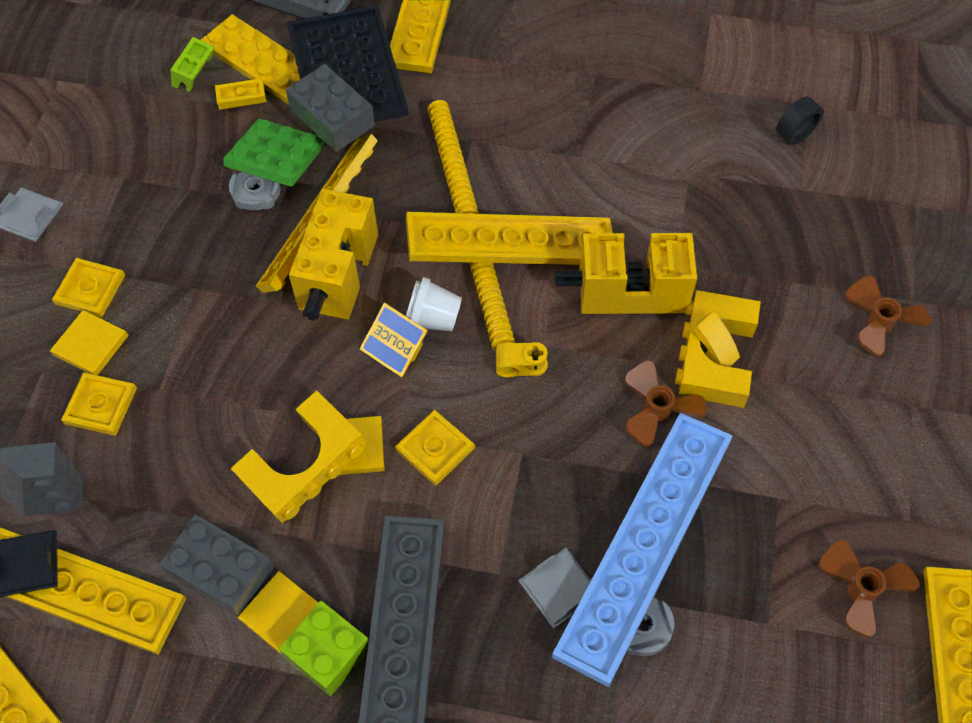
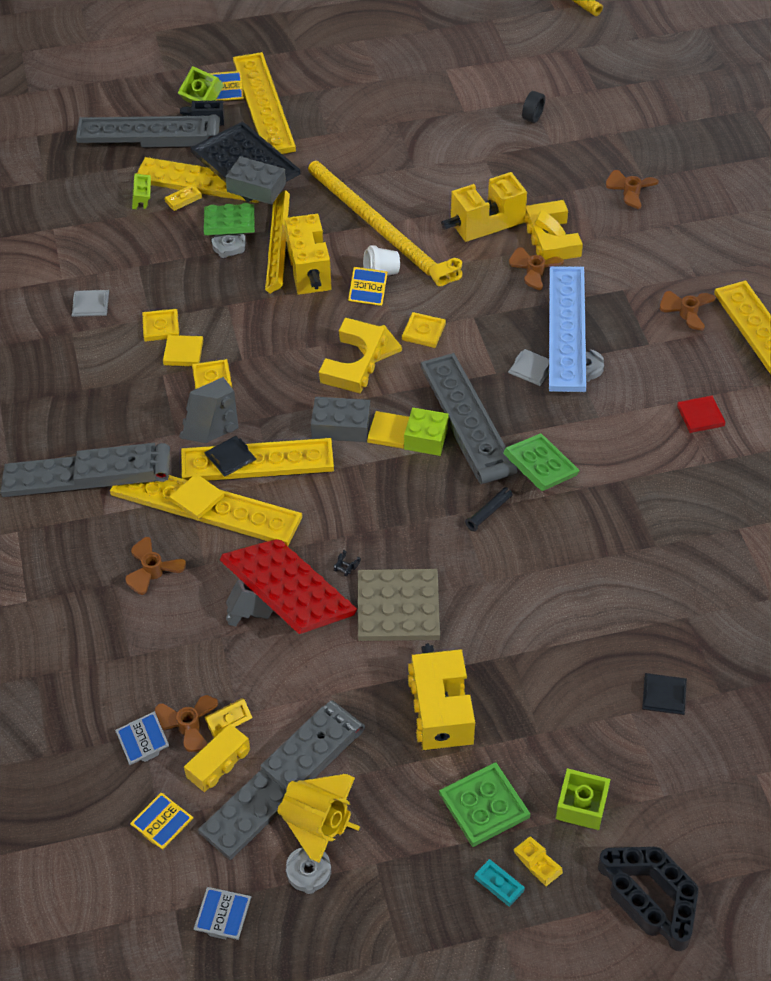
camera: 25 degrees left, 10 degrees down
(499, 237) = (398, 216): yellow plate -> none

